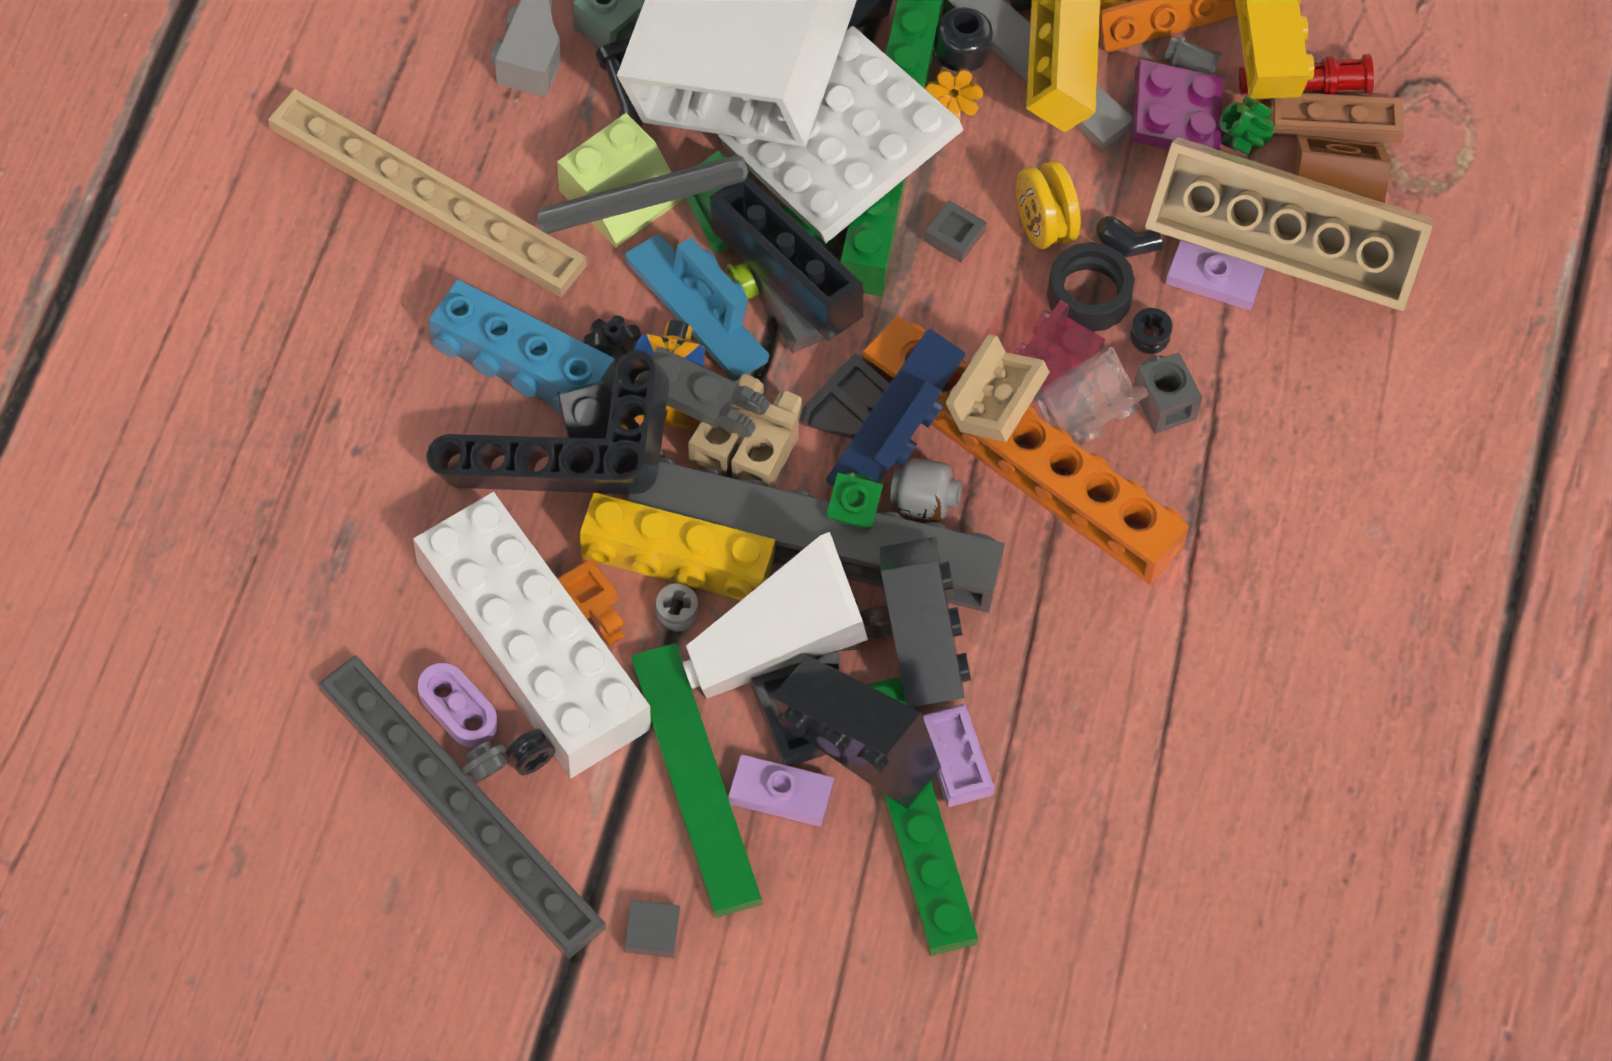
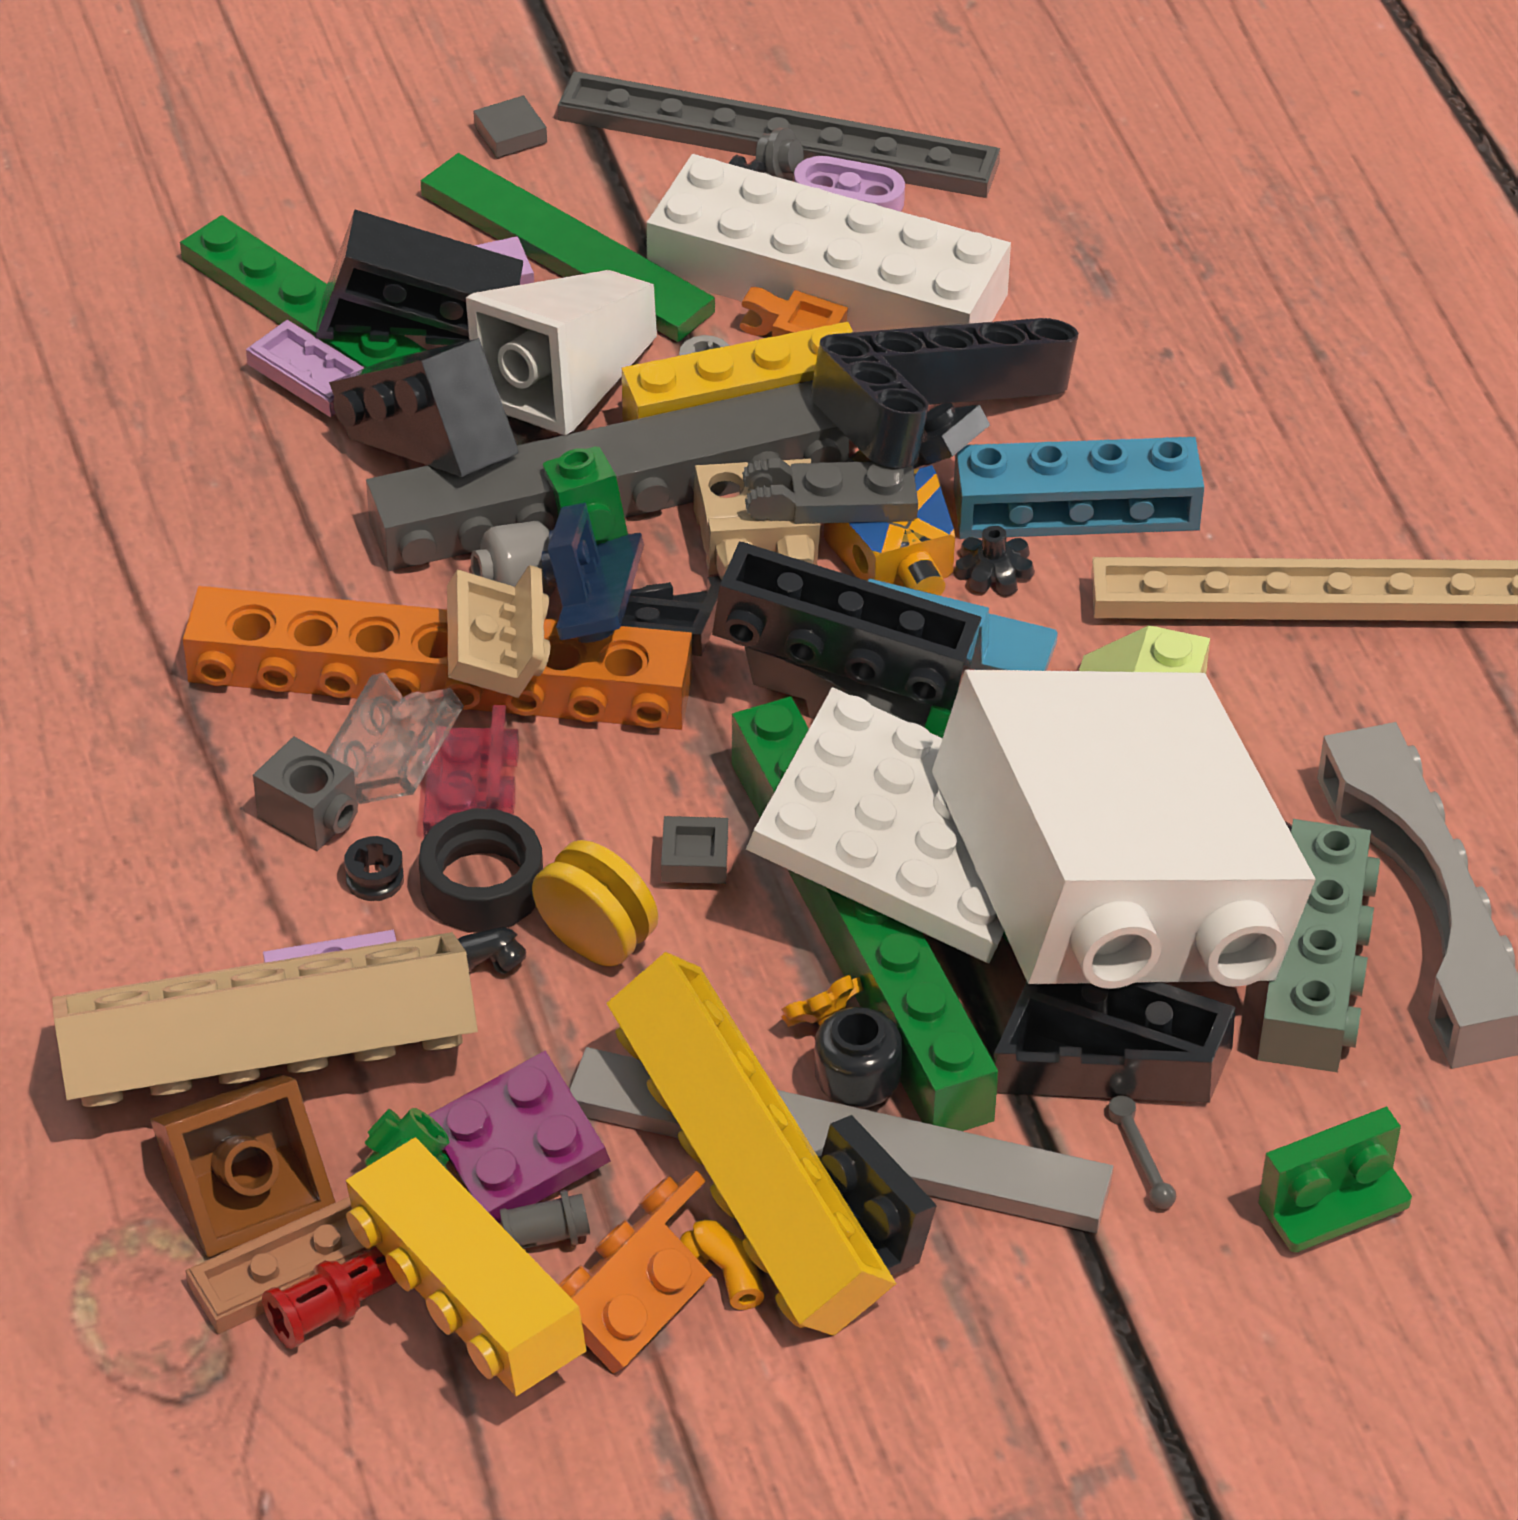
camera: 150 degrees right, 15 degrees down
(642, 194) = (1068, 623): dark grey axle -> none

